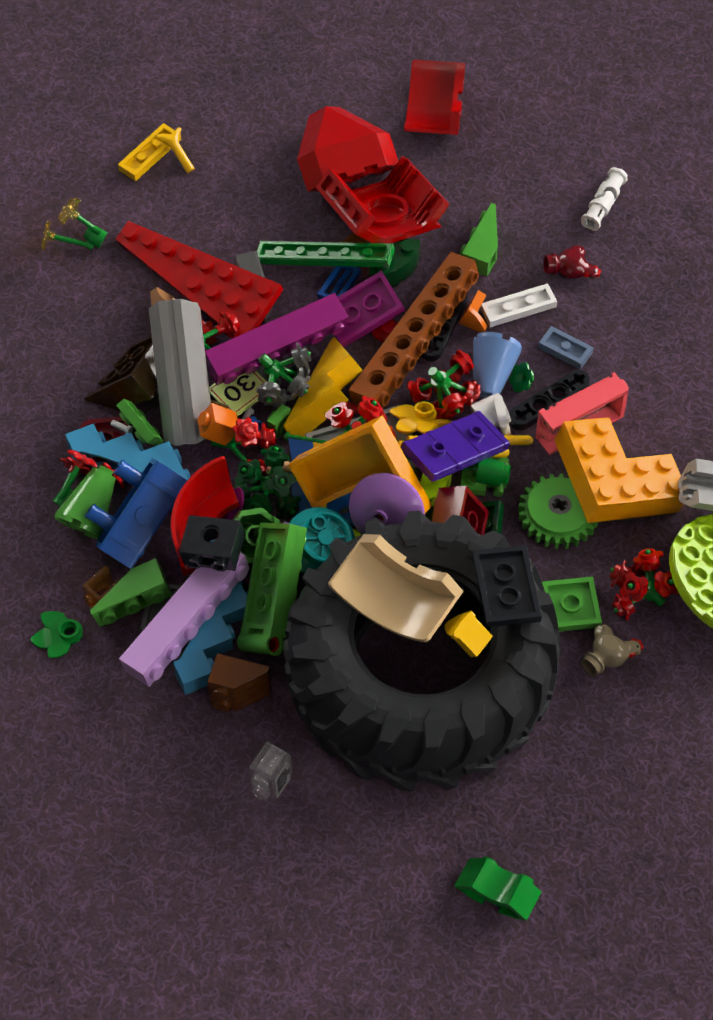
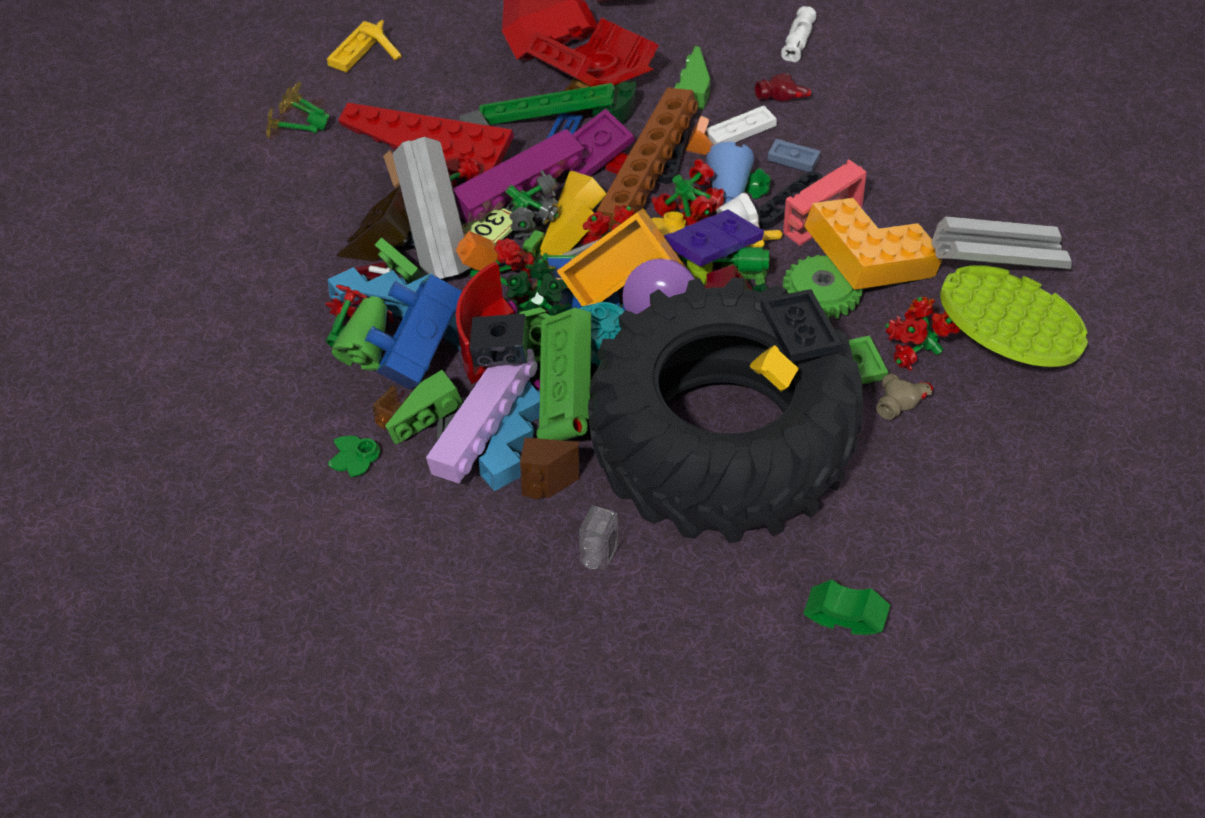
camera: 10 degrees left, 10 degrees down
(392, 592) = (693, 343): tan panel -> none

